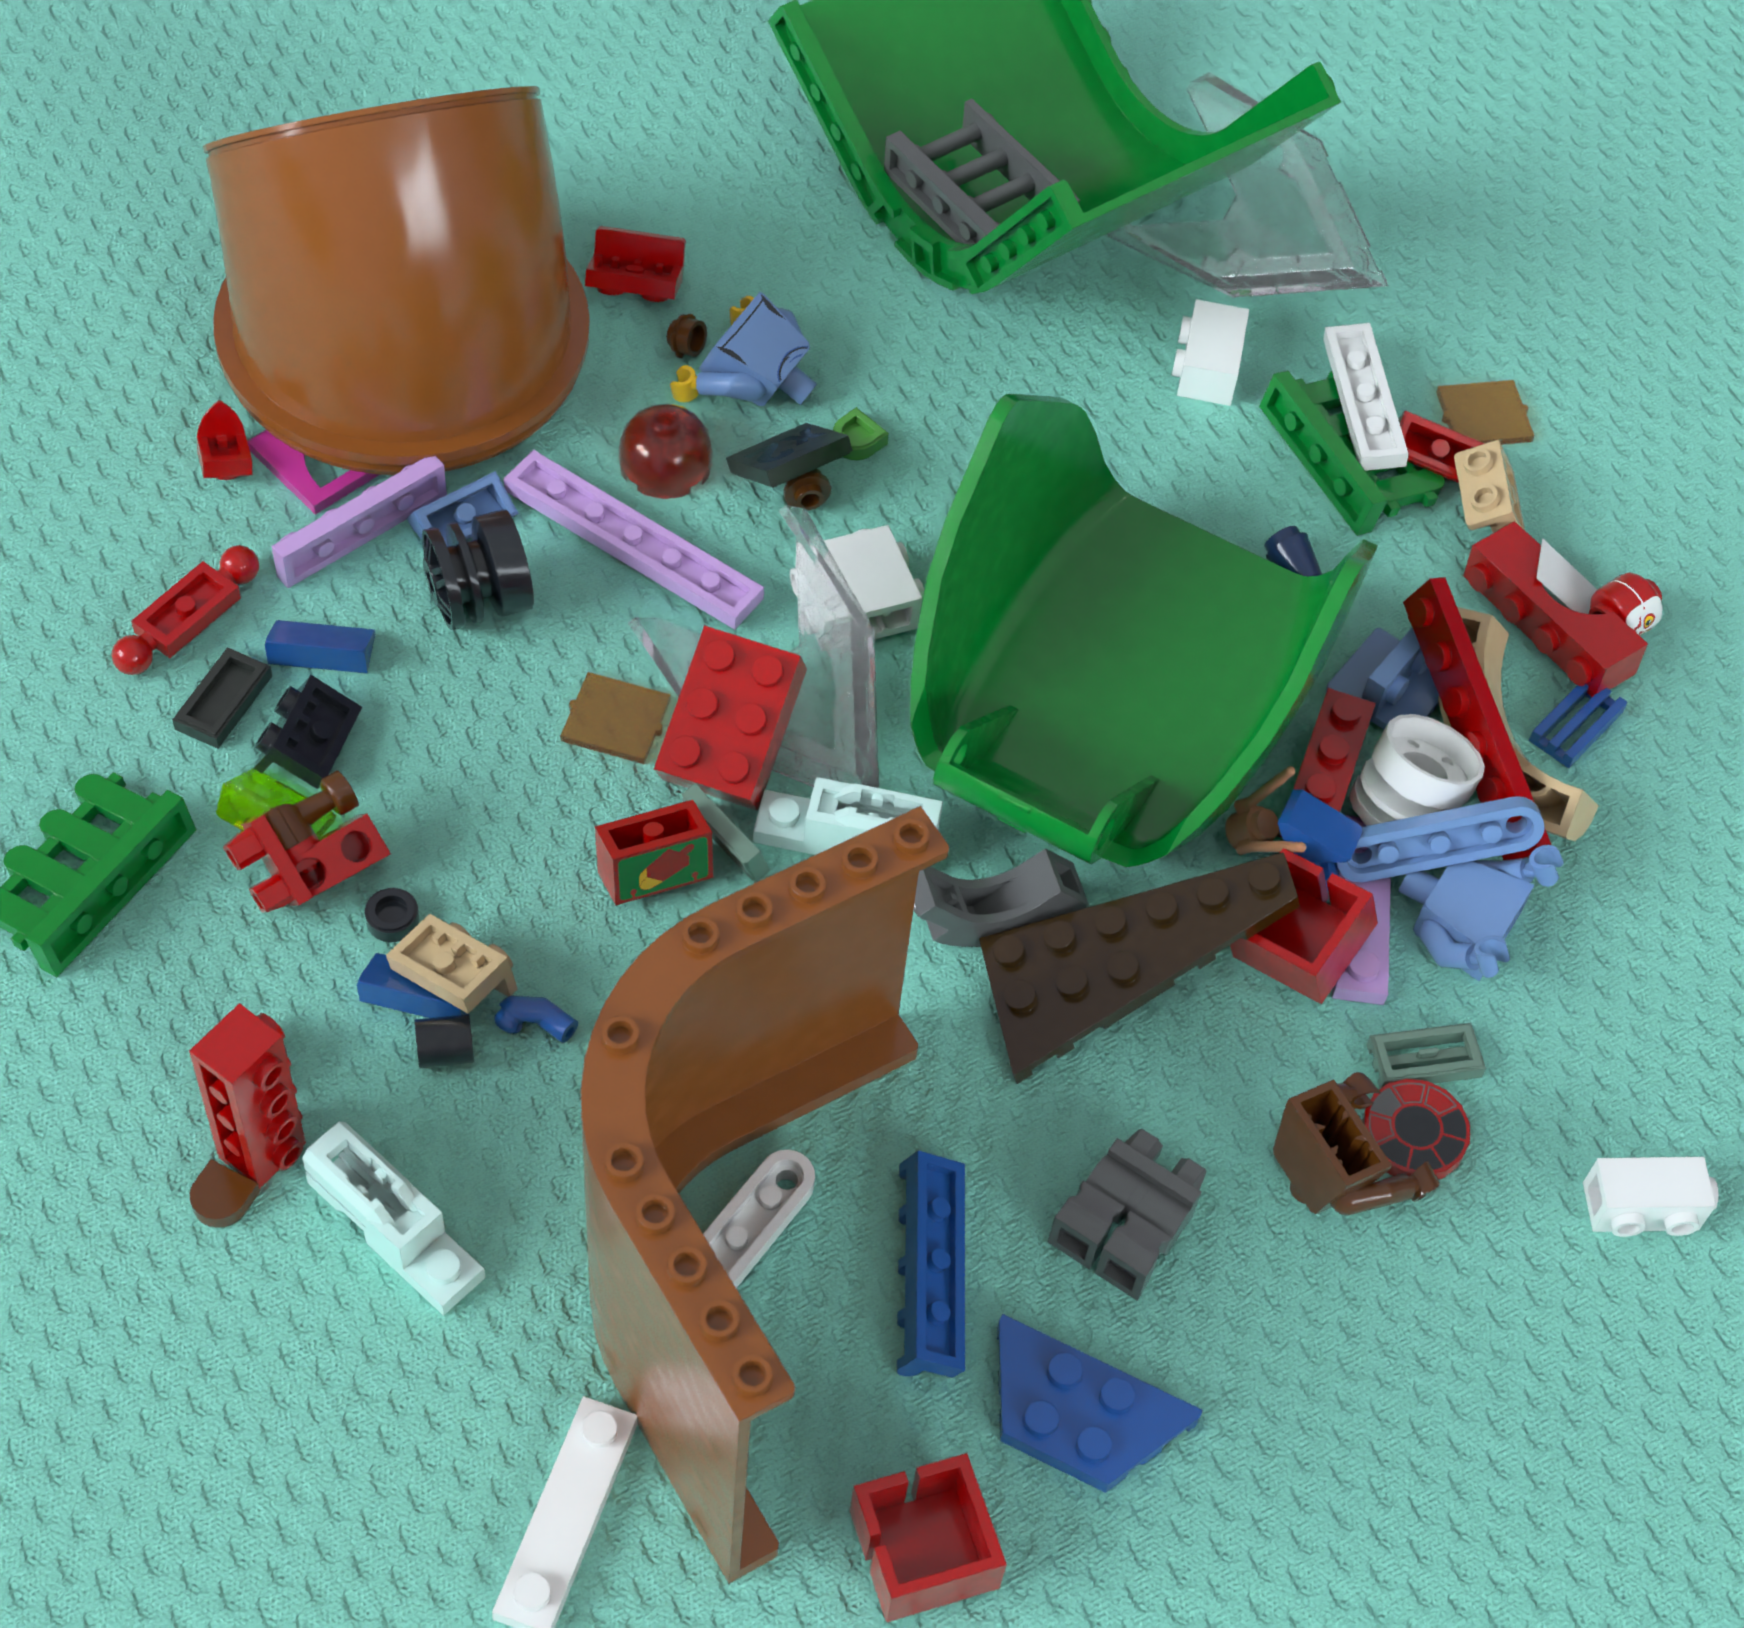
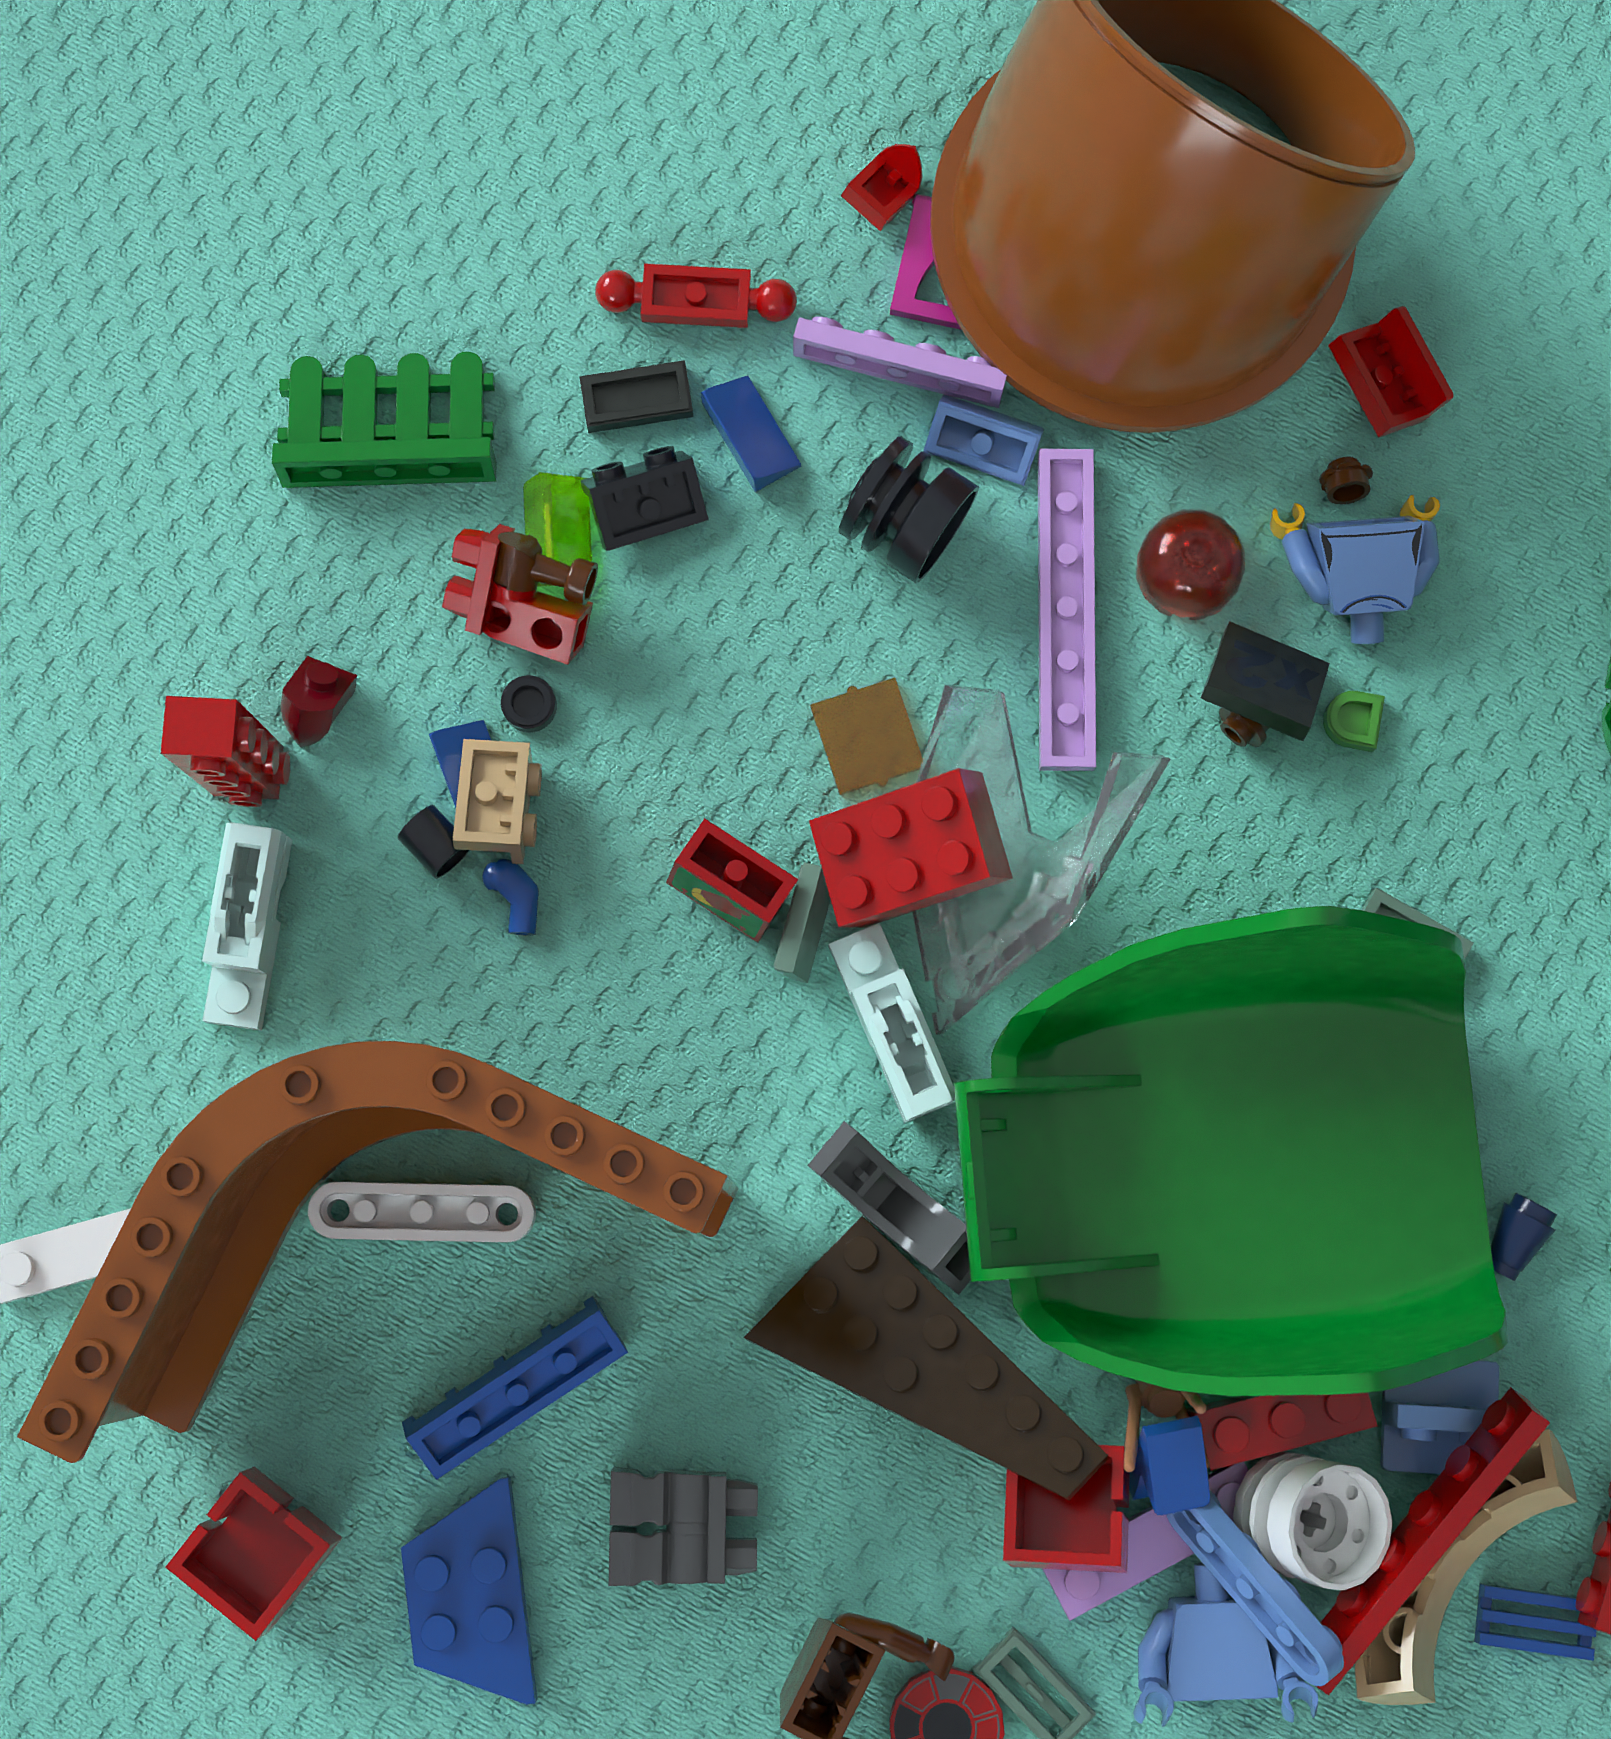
camera: 60 degrees right, 25 degrees up
(221, 1195) = (174, 783): reddish brown tile -> none
(879, 578) = (1171, 856): white brick -> none

